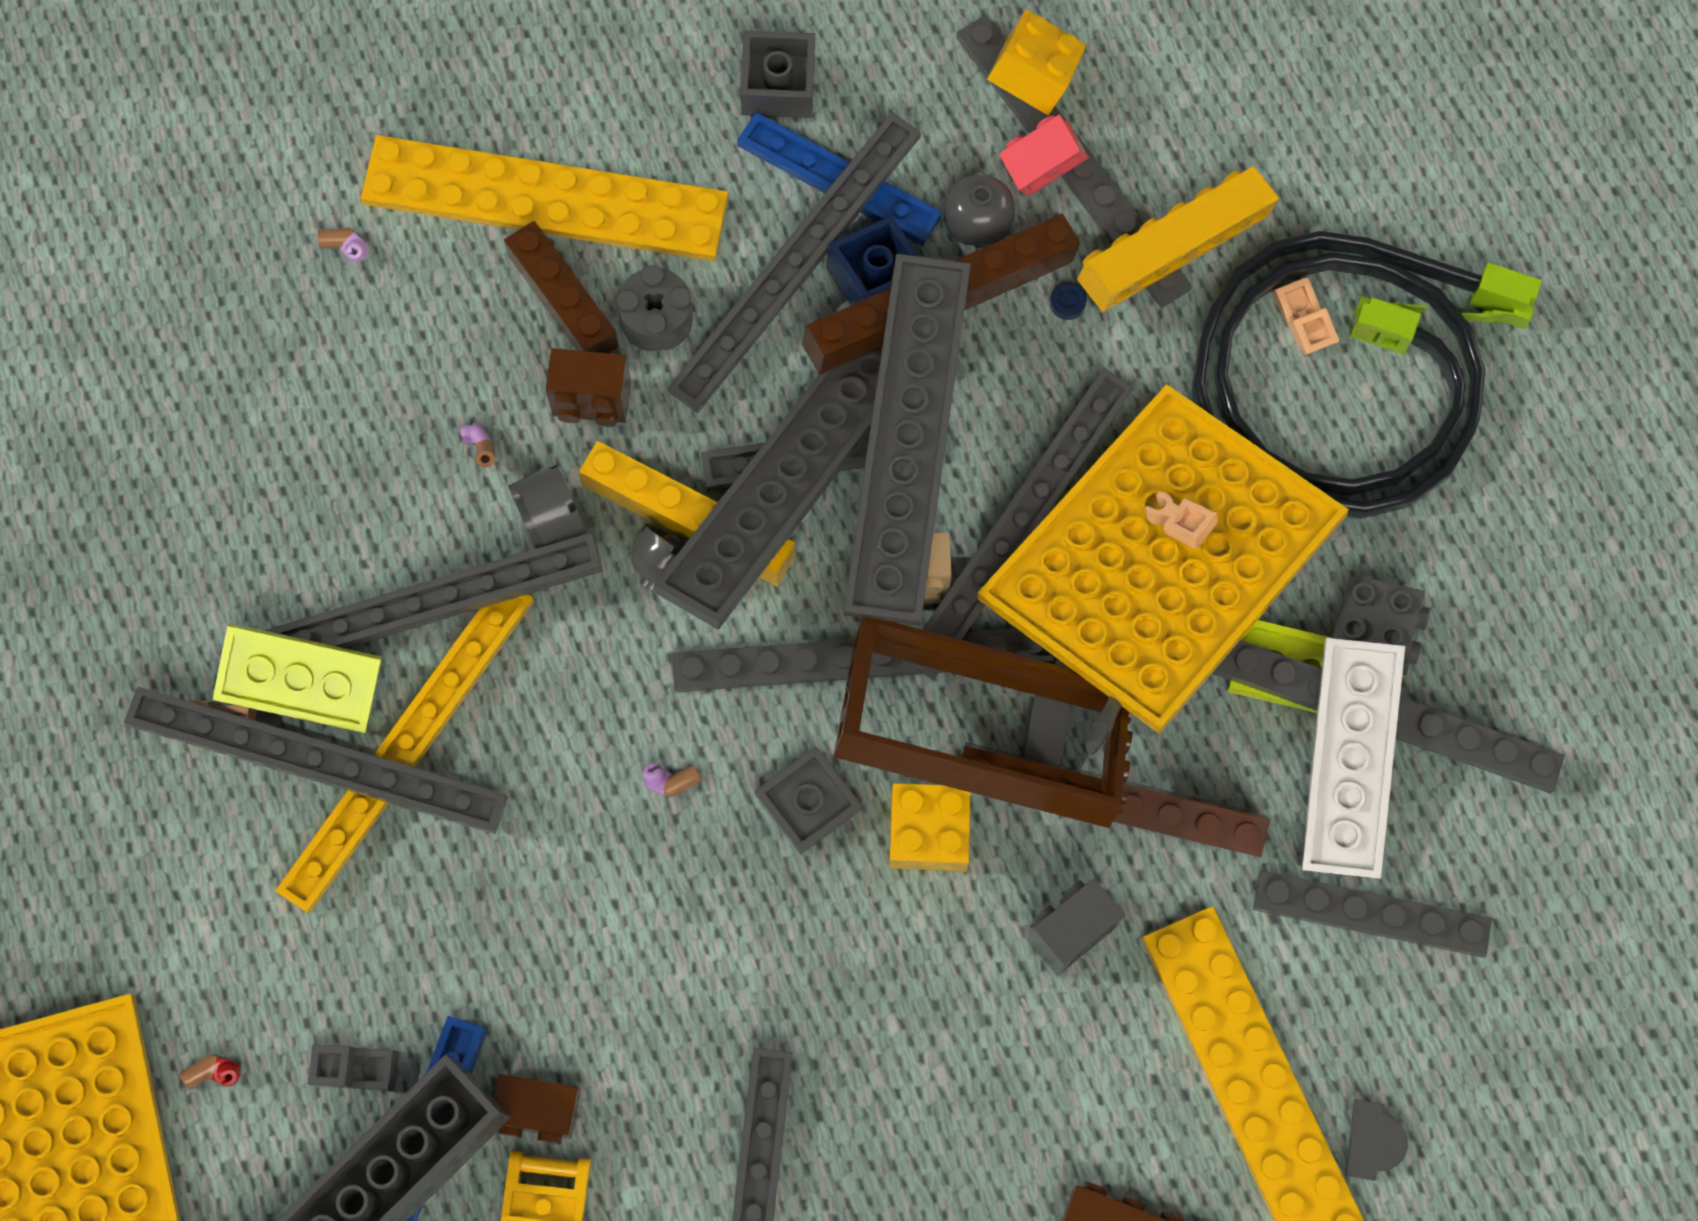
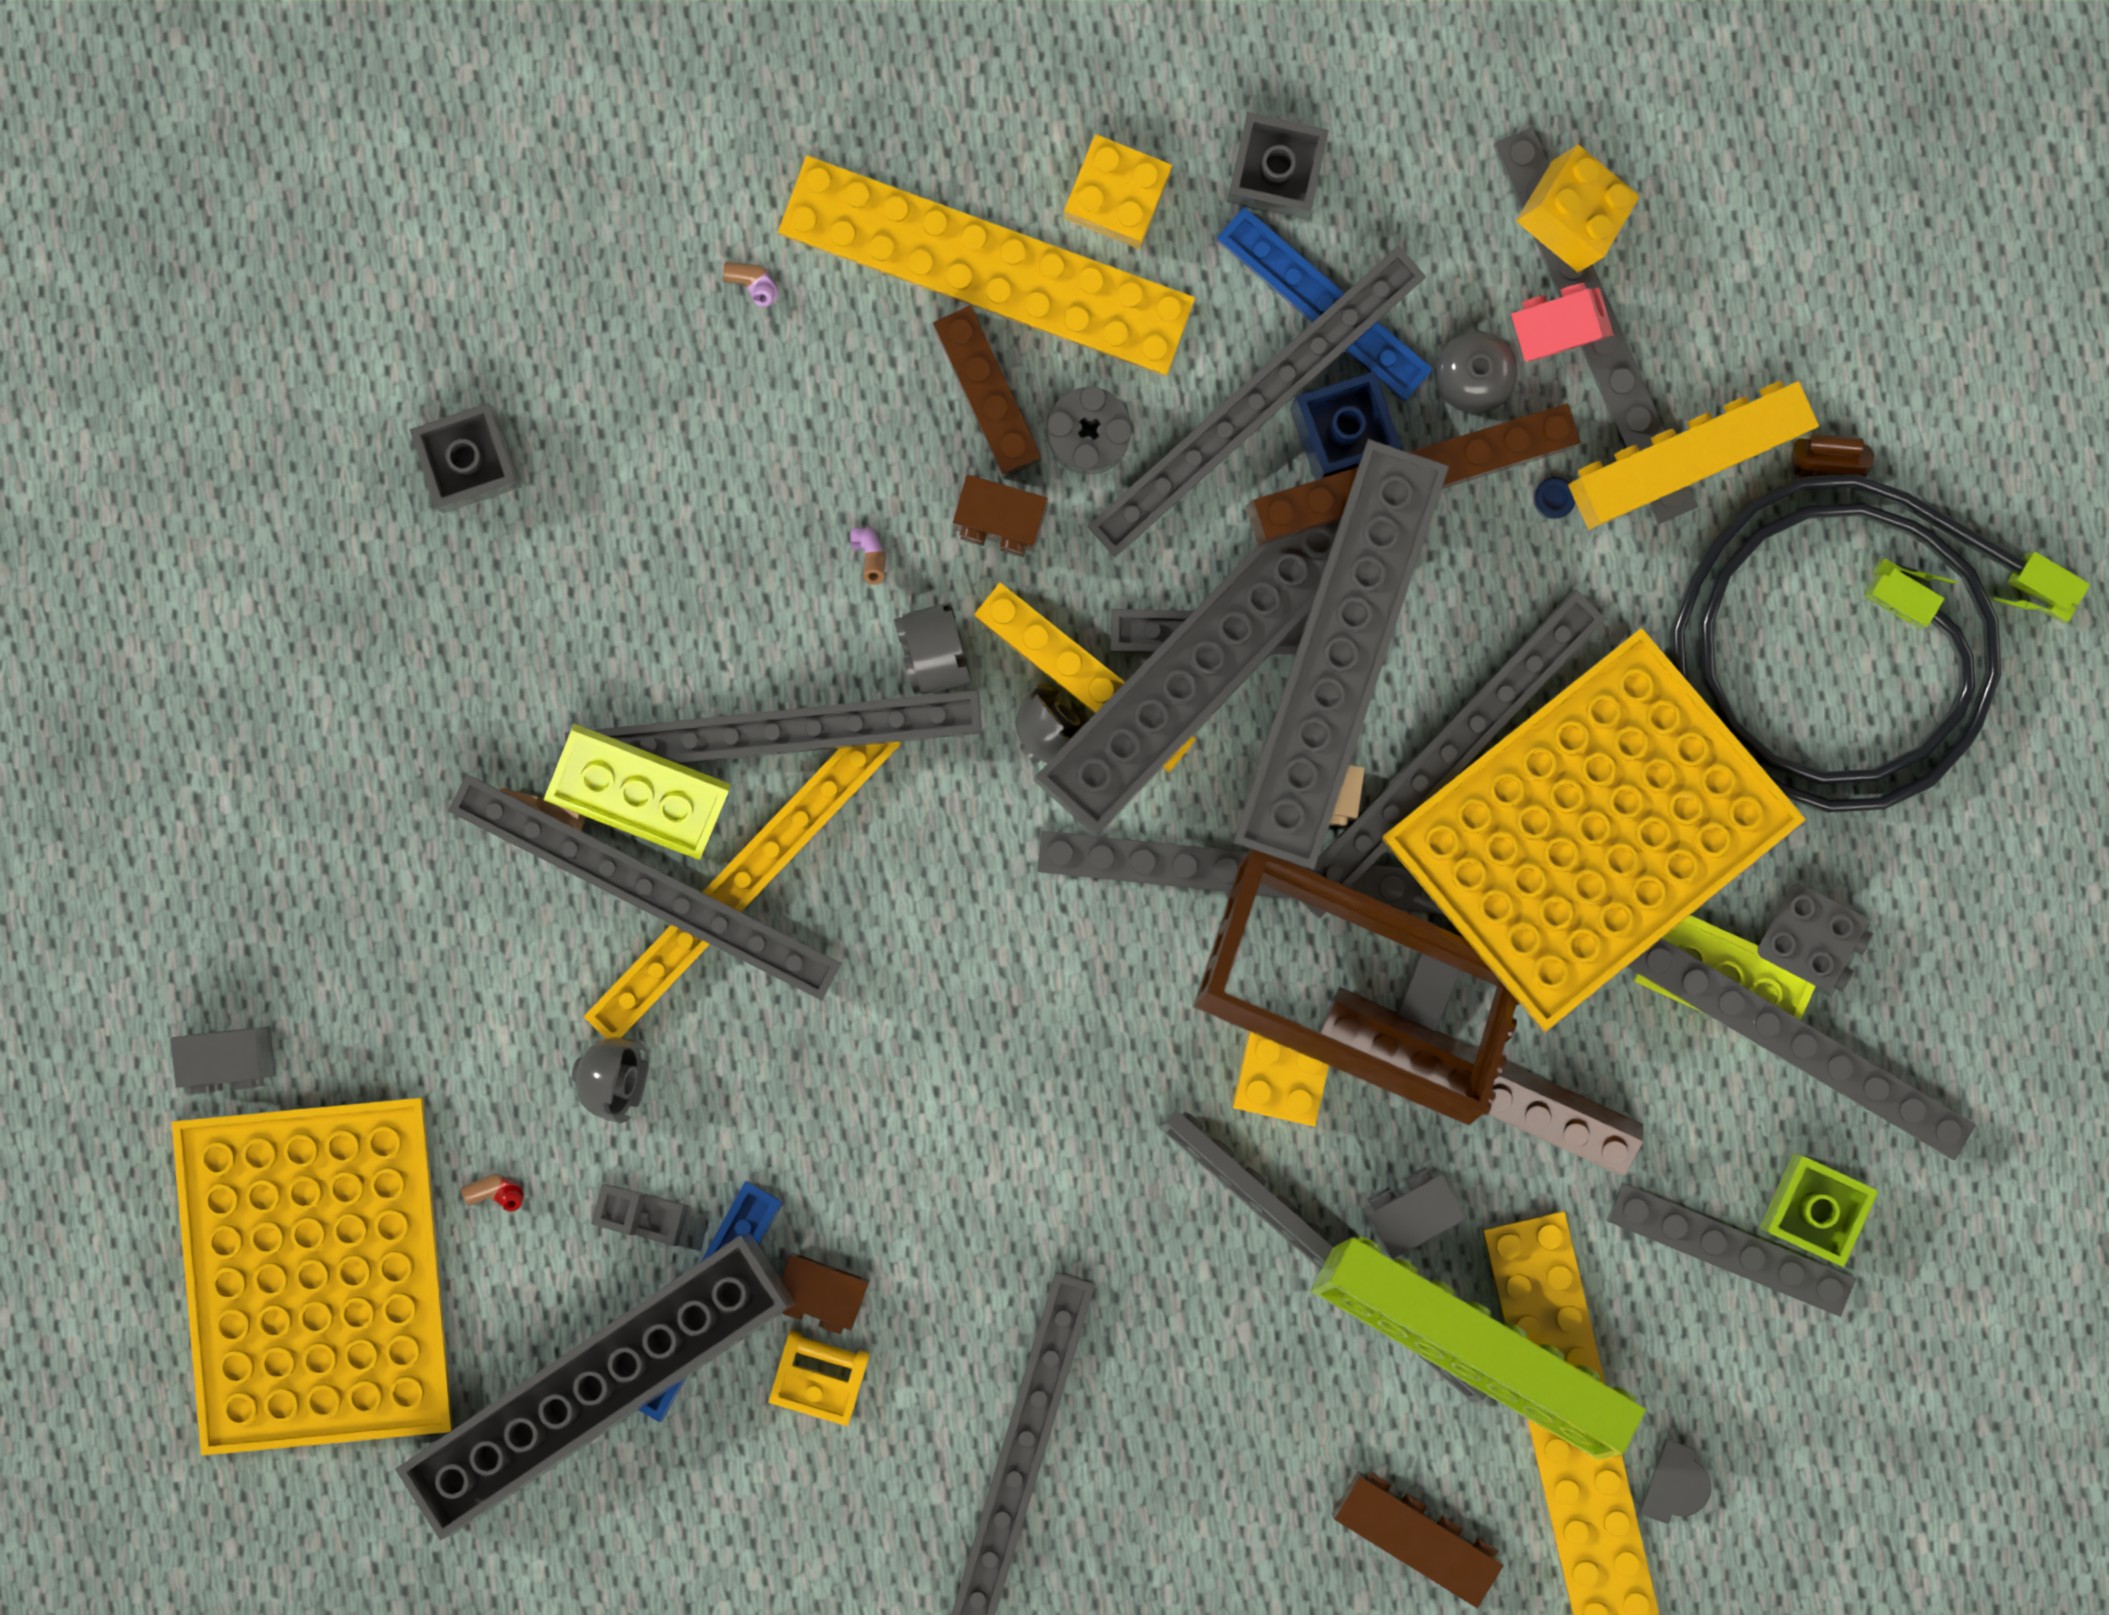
camera: 15 degrees right, 15 degrees up
(107, 422) = (465, 458): none -> dark grey brick
(308, 940) = (611, 1078): none -> dark grey cylinder
(646, 117) = (1117, 191): none -> yellow brick
(669, 783) = (1013, 972): arm -> none
(808, 800) = (1159, 1020): dark grey plate -> none
(1014, 993) = (1276, 1211): none -> dark grey plate
(1103, 725) = (1485, 1015): dark grey piece -> none
(1163, 1035) = (1478, 1348): none -> lime brick
(1185, 522) = (1624, 803): light nougat plate -> none
(1294, 222) = (1831, 456): none -> reddish brown piece
(1304, 316) = (1817, 565): light nougat slope -> none
(1353, 758) = (1747, 1087): white plate -> none
(1443, 858) = (1818, 1209): none -> lime brick

